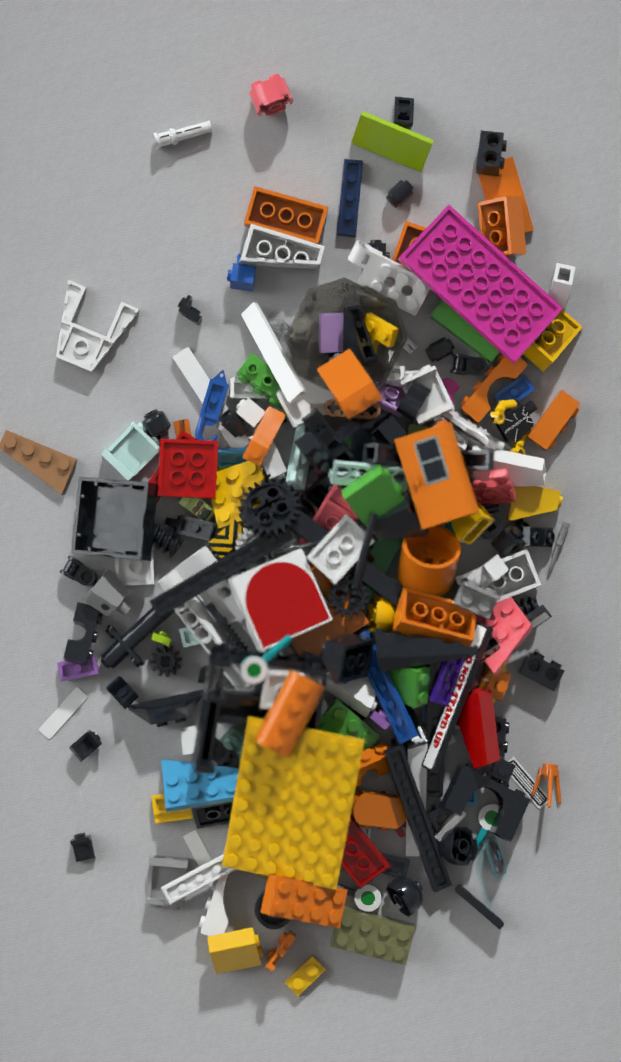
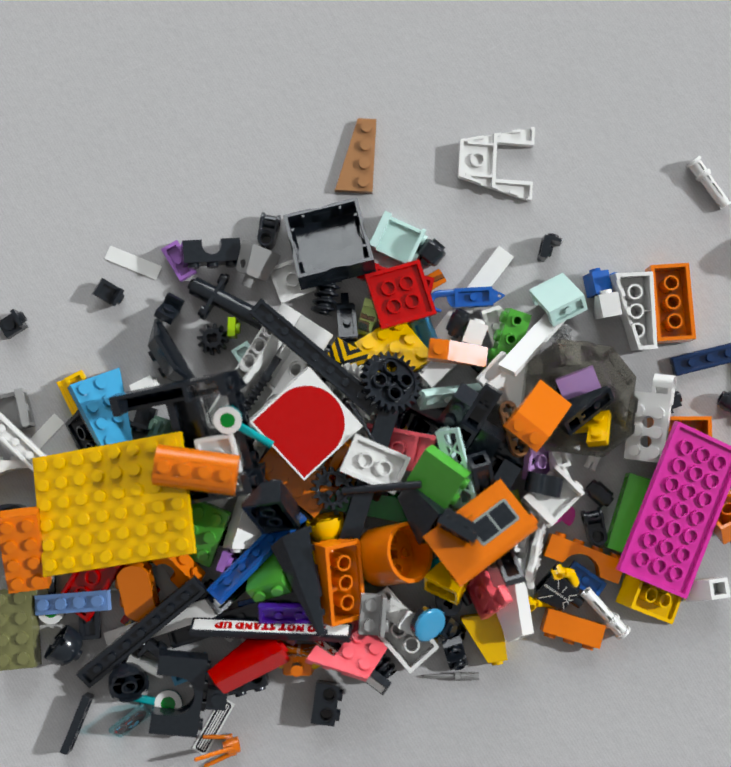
camera: 80 degrees right, 5 degrees down
(245, 321) = (559, 299): none -> light aqua panel
(267, 277) = (607, 304): none -> white slope
(368, 873) = (73, 602): none -> medium blue plate
(424, 493) = (459, 526): none -> black bracket
(501, 552) = (427, 623): none -> dark azure piece
(559, 381) = (610, 618): none -> white pin

